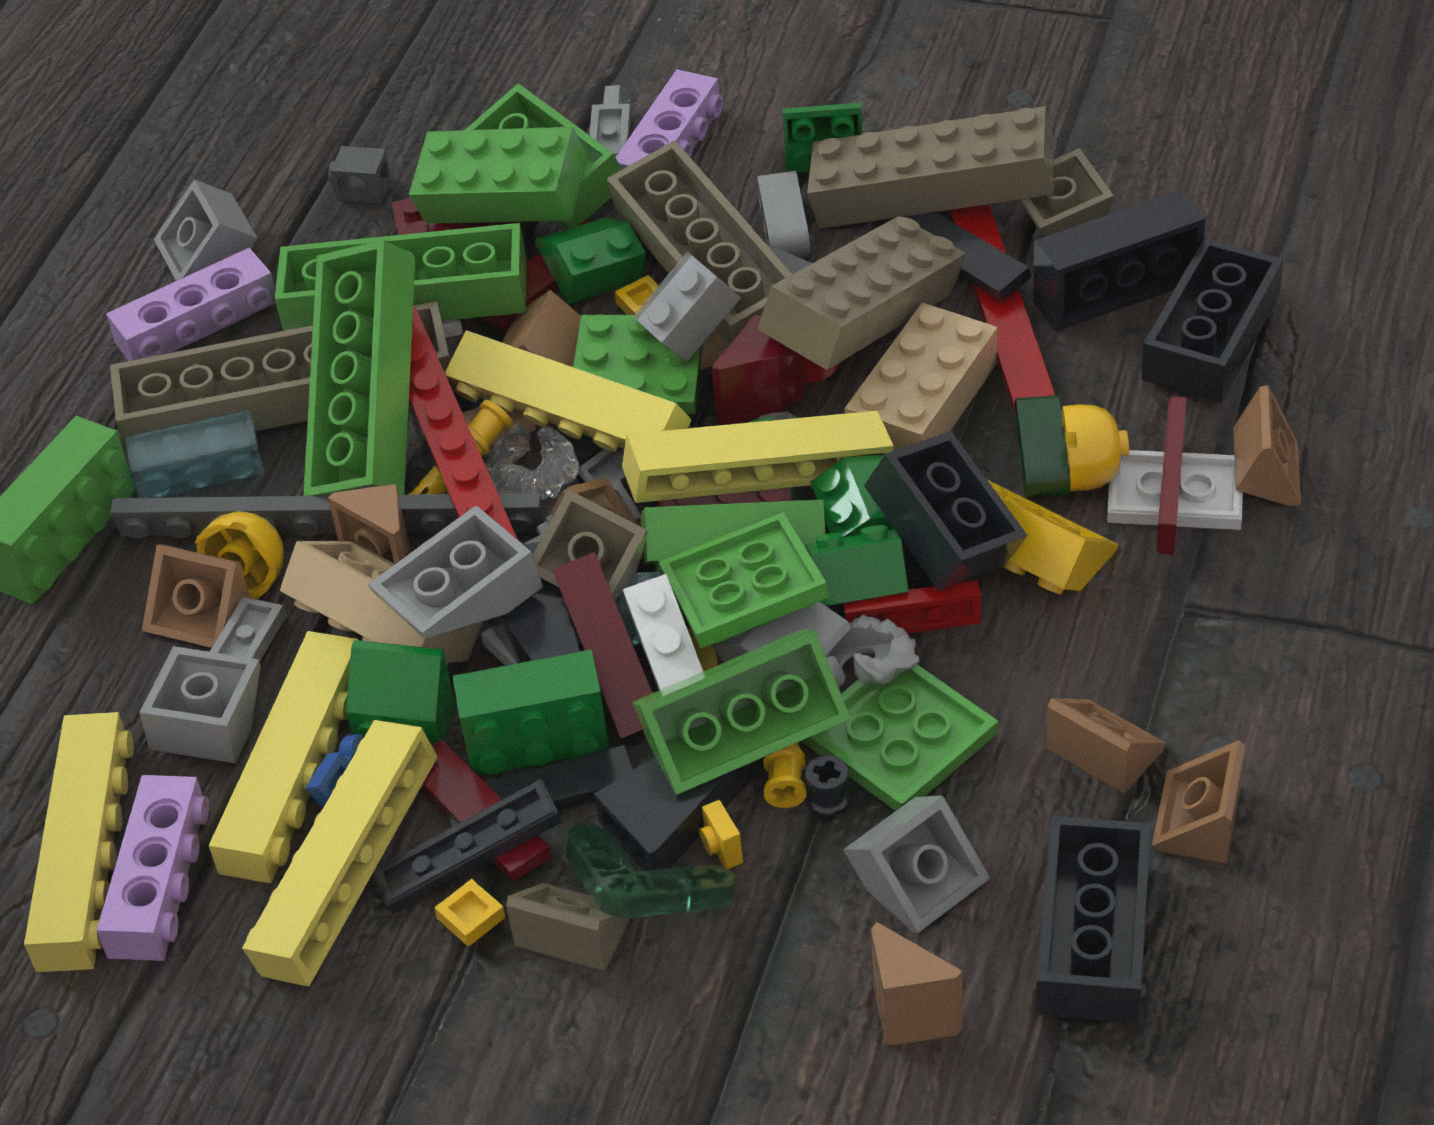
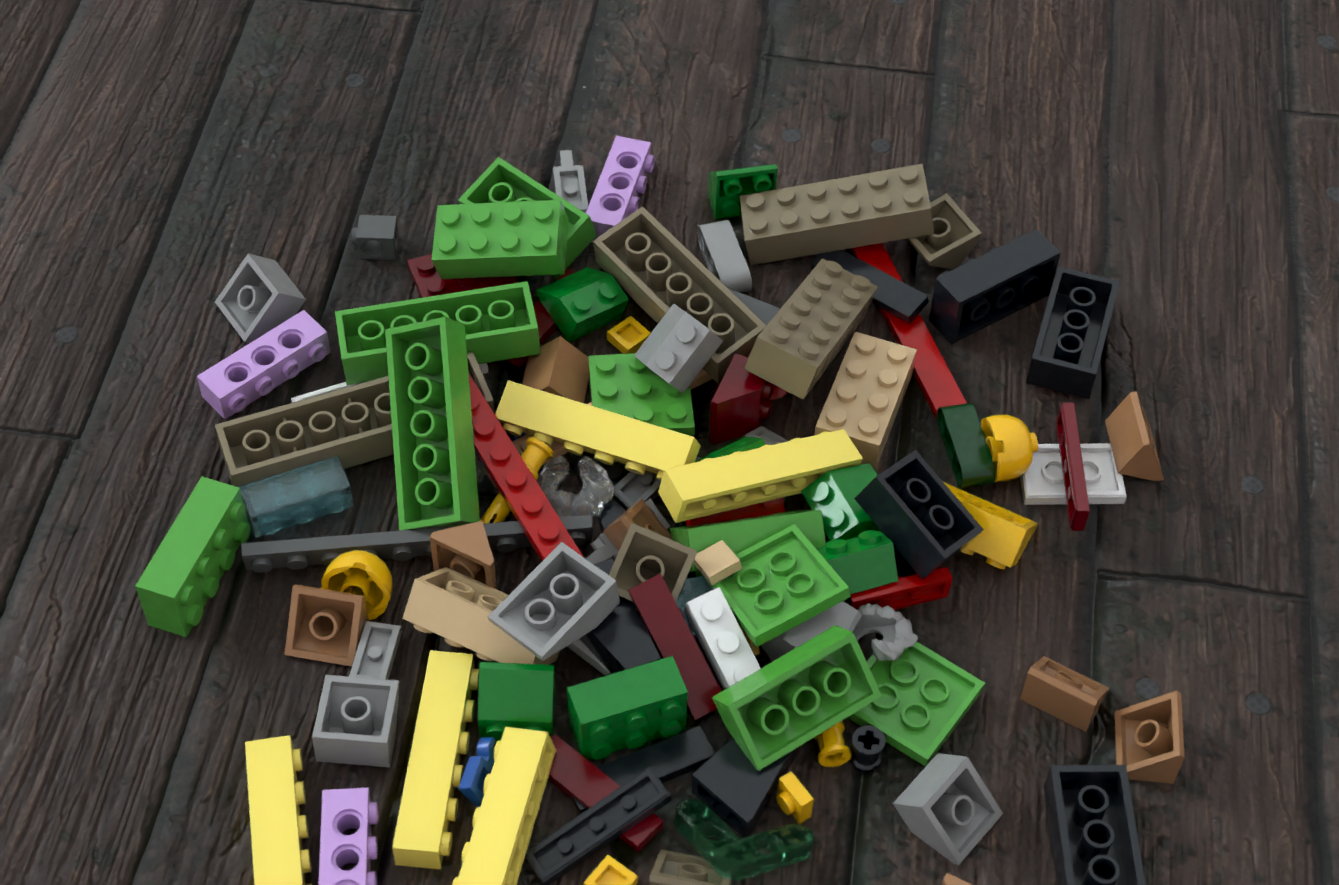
camera: 15 degrees left, 5 degrees up
(675, 550) = (717, 562): none -> tan tile

